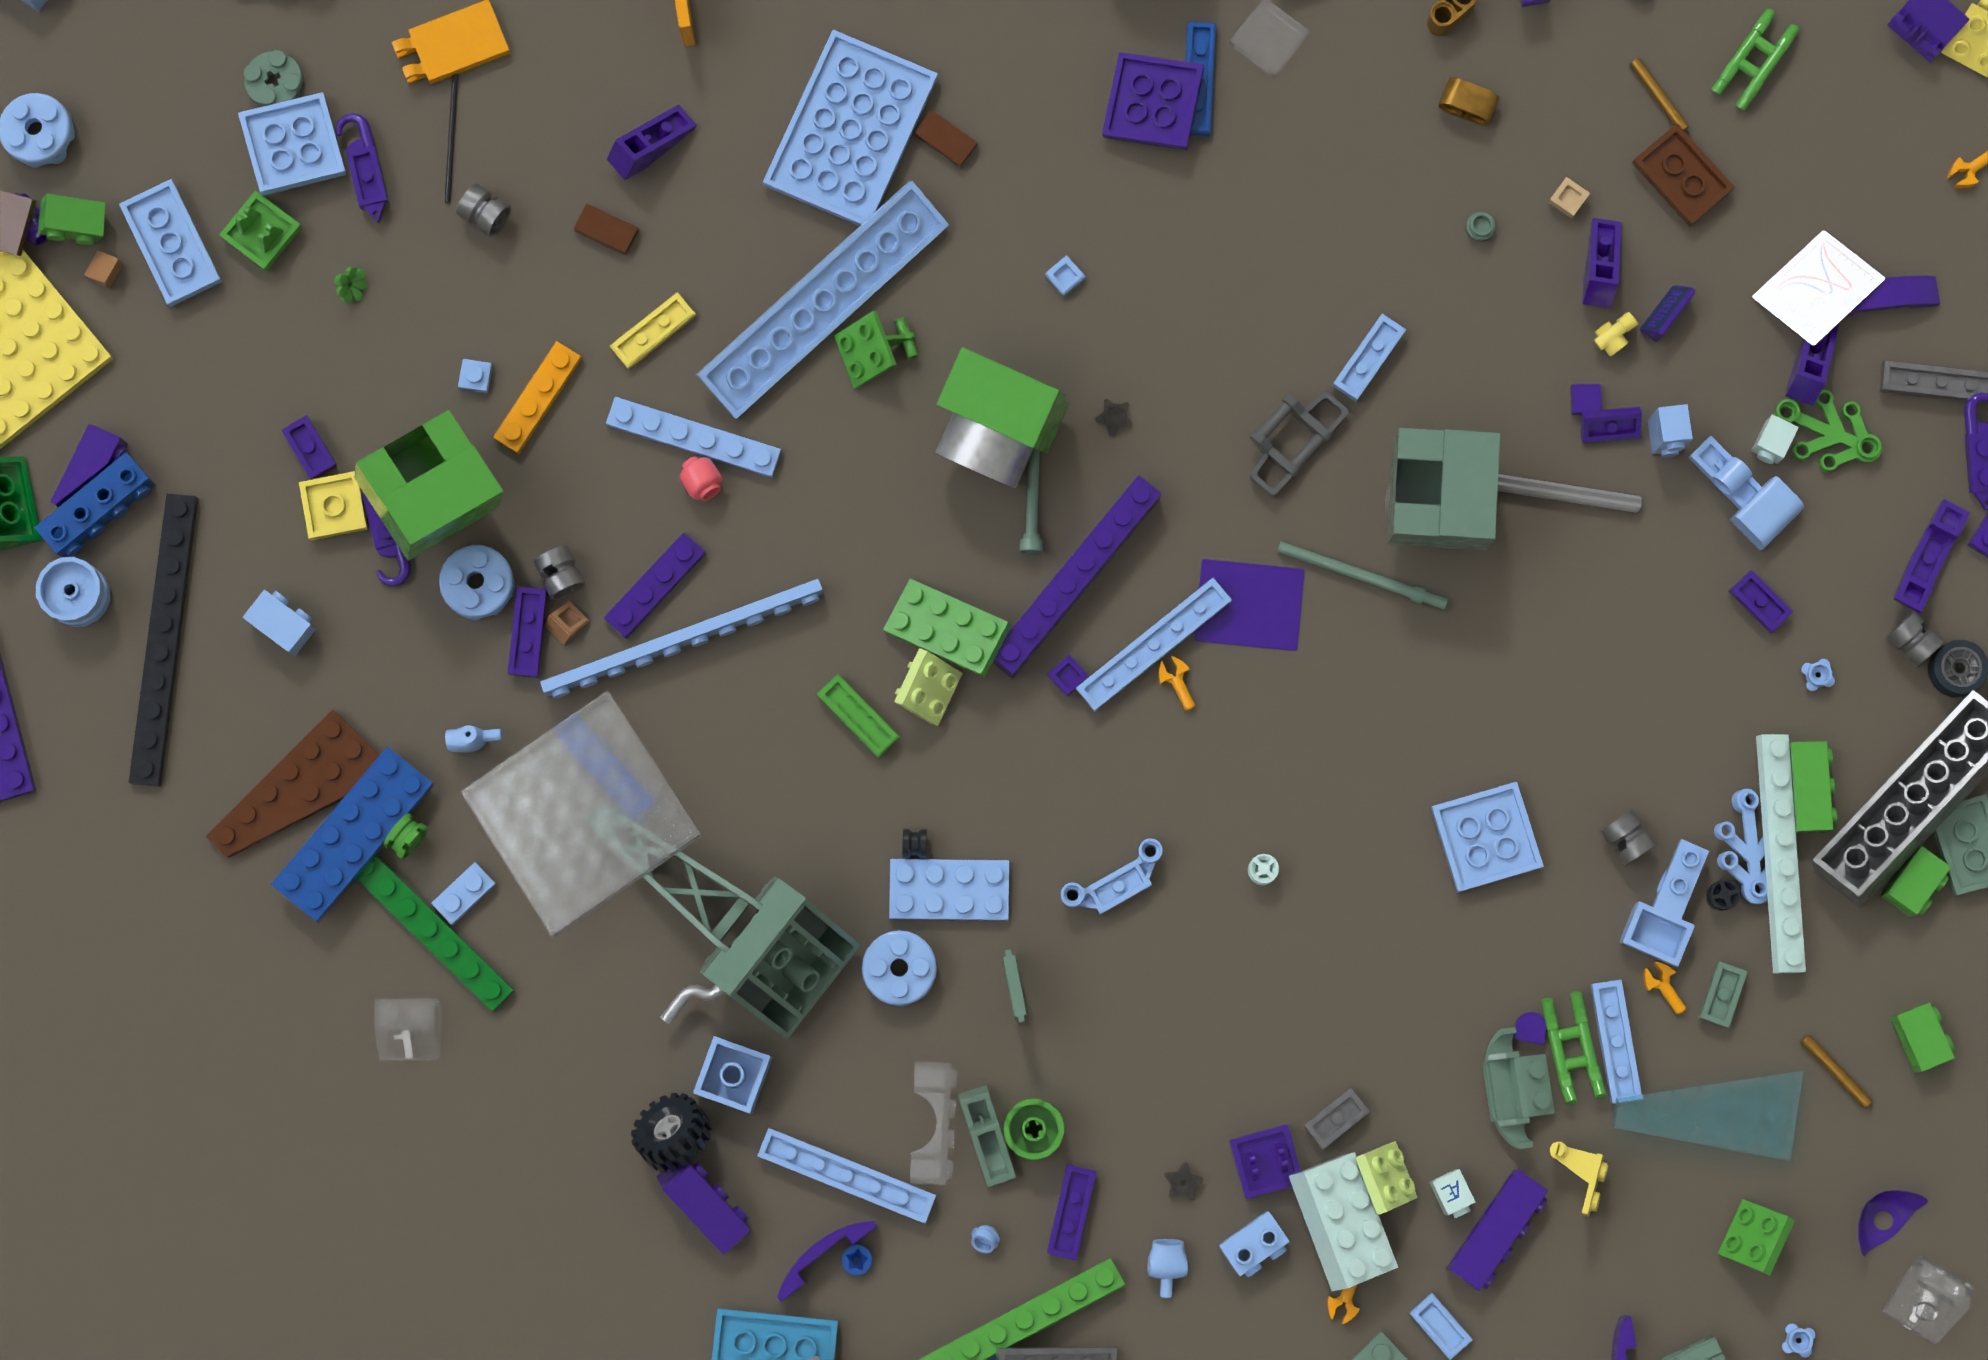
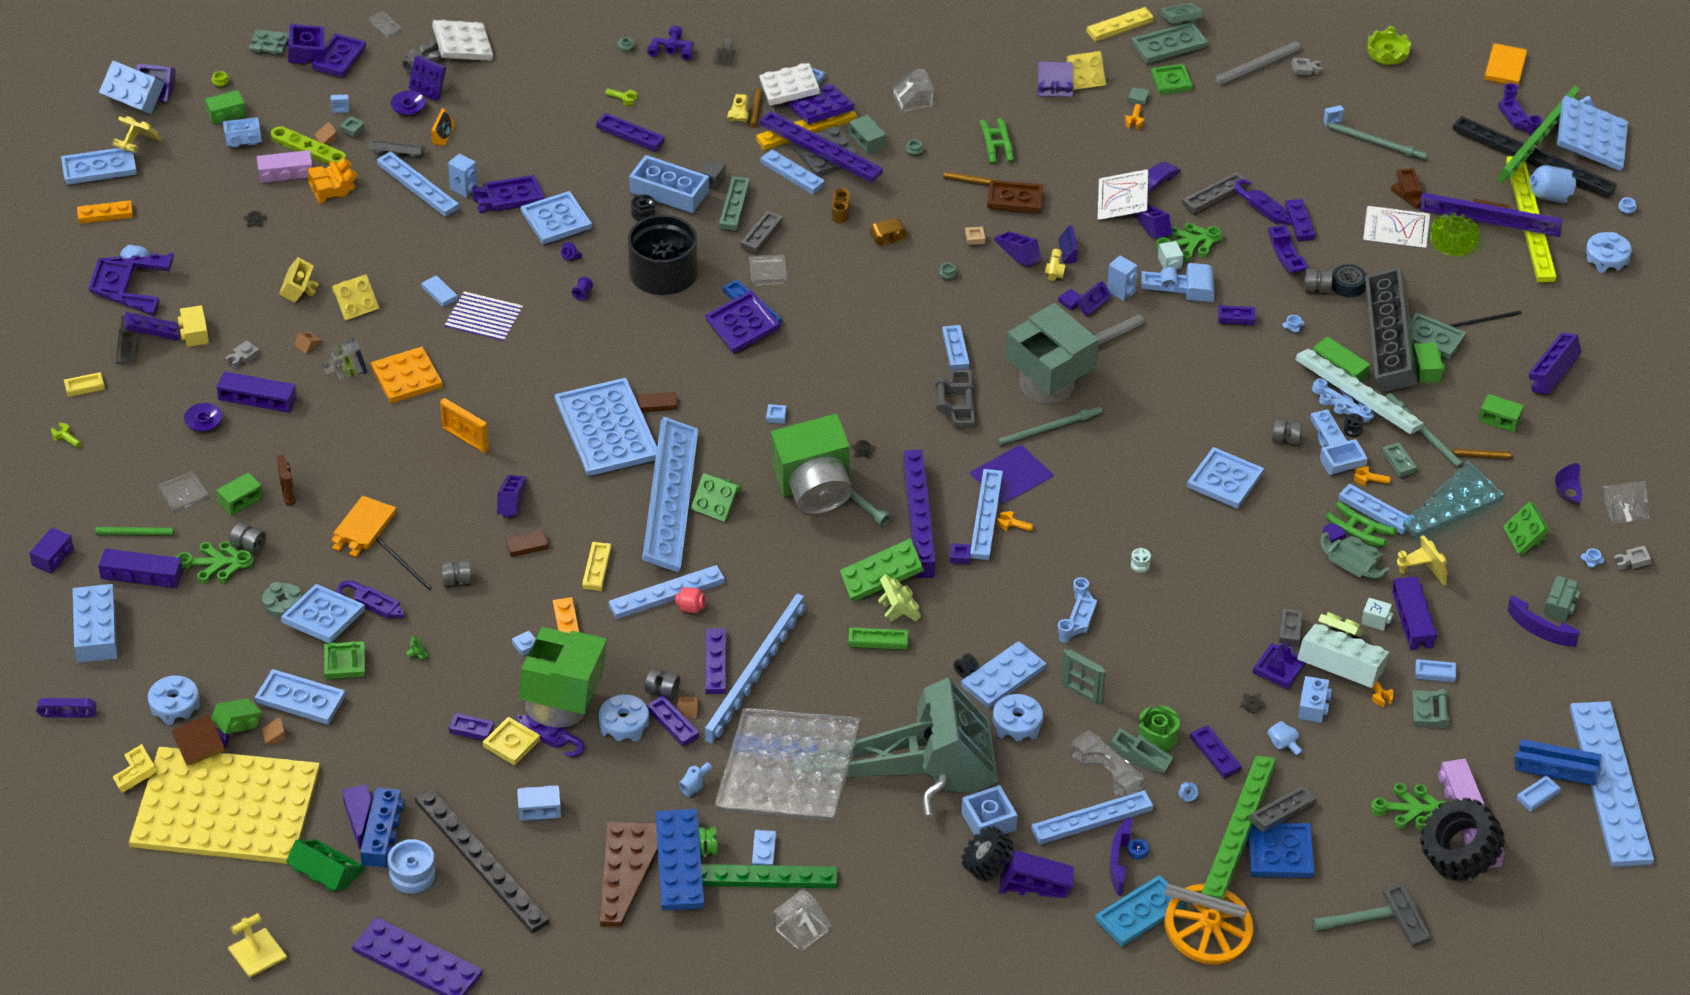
camera: 45 degrees left, 35 degrees down
(1811, 917) = (1428, 434): none -> sand green bar

